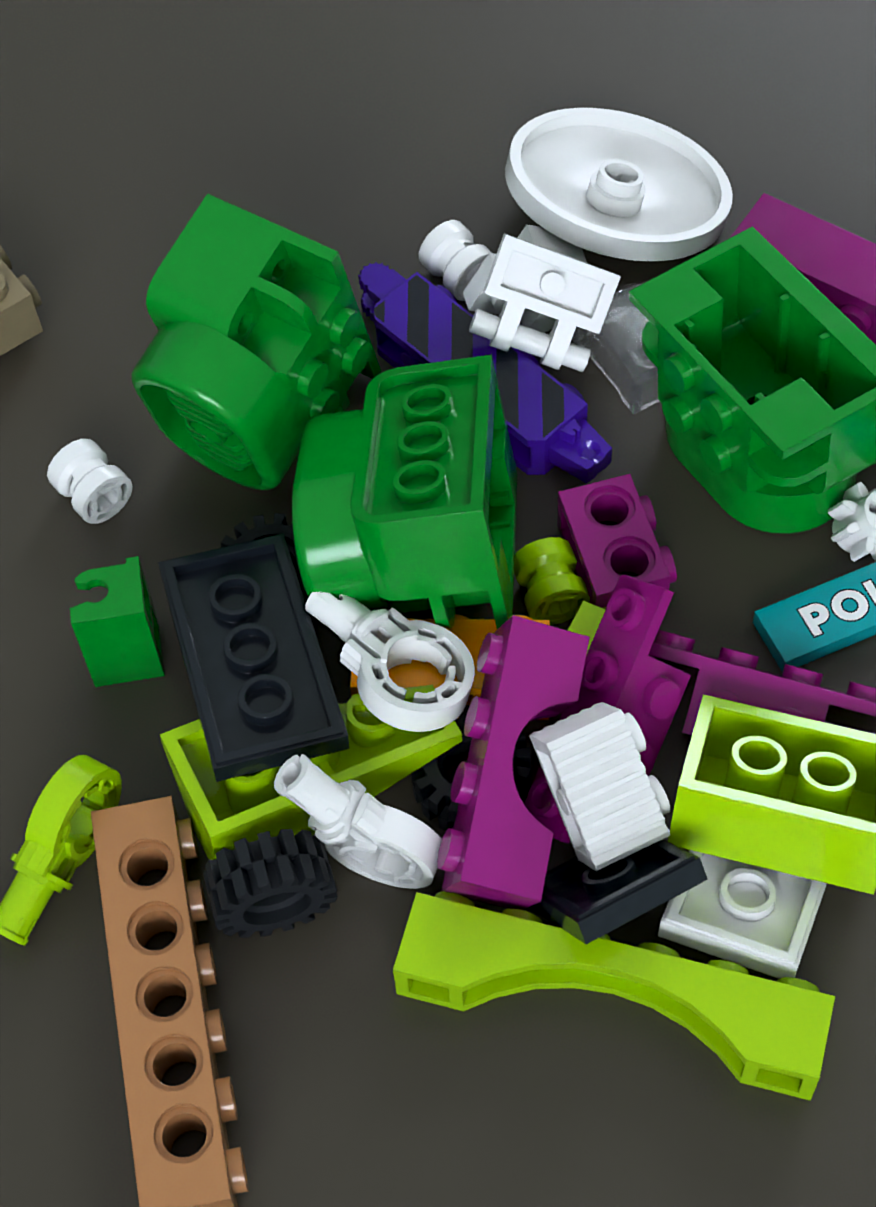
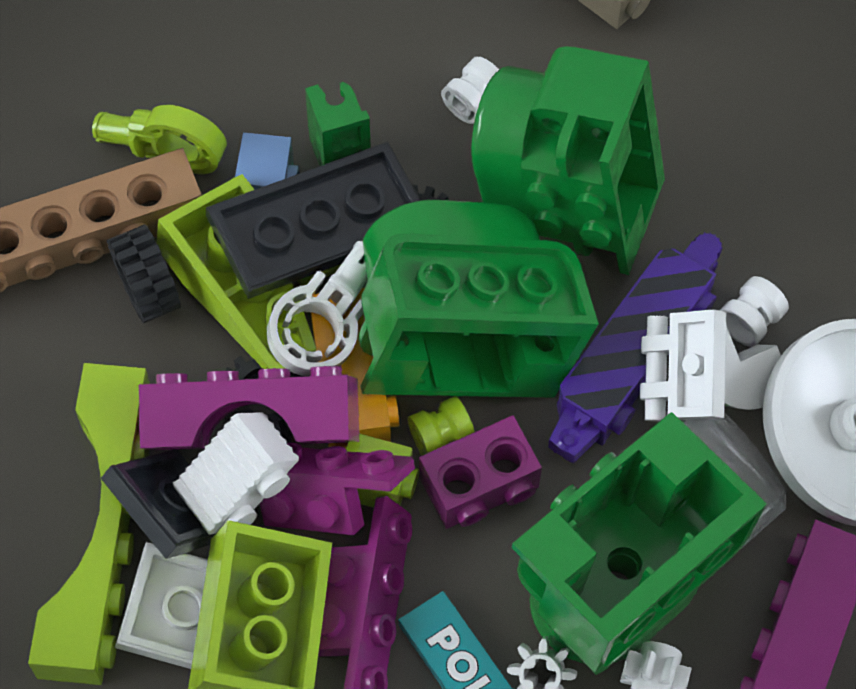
camera: 75 degrees right, 5 degrees up
(131, 724) = (265, 159): none -> medium blue brick
(359, 828) = (187, 316): white pin -> none

